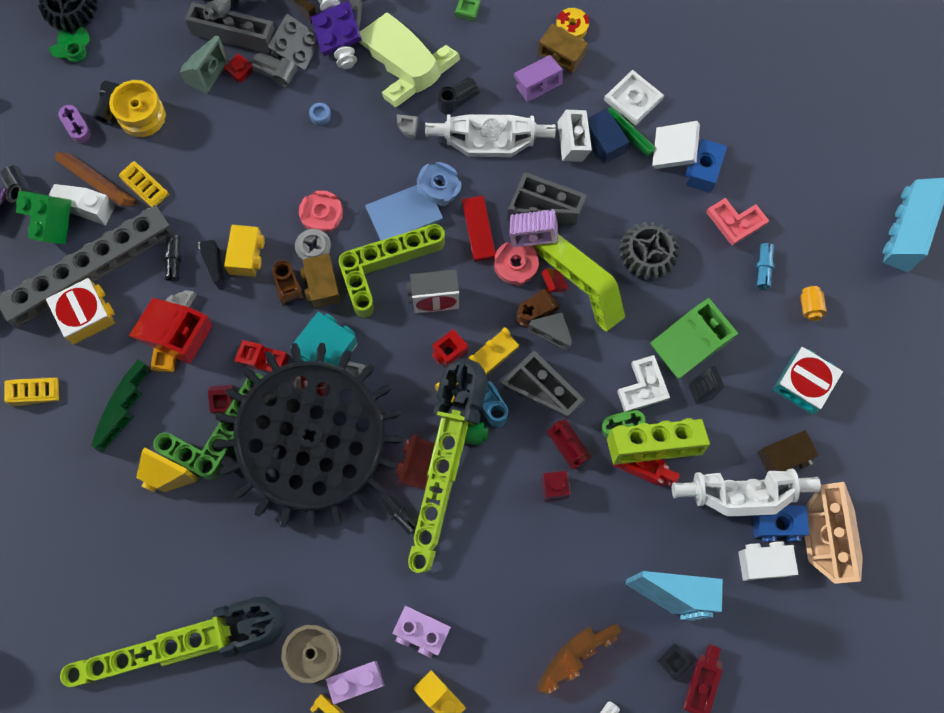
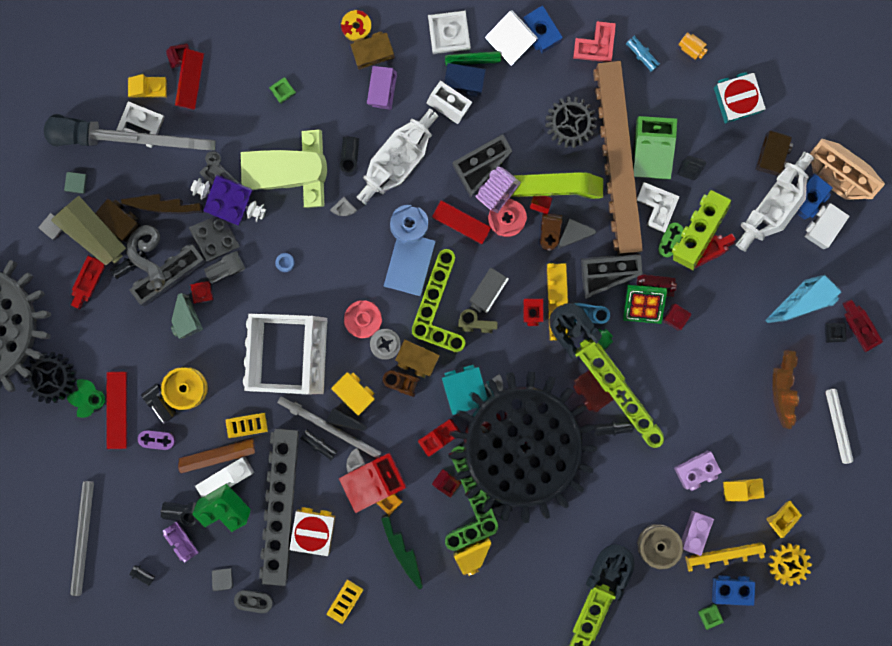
camera: 50 degrees left, 15 degrees up
(78, 75) = (116, 410): none -> red tile
(192, 217) = (296, 408): none -> light grey bar
(249, 188) = (312, 360): none -> white windscreen
(400, 317) = (485, 326): none -> olive plate
(542, 444) = (644, 304): none -> tile
(654, 317) = (619, 158): none -> medium nougat brick

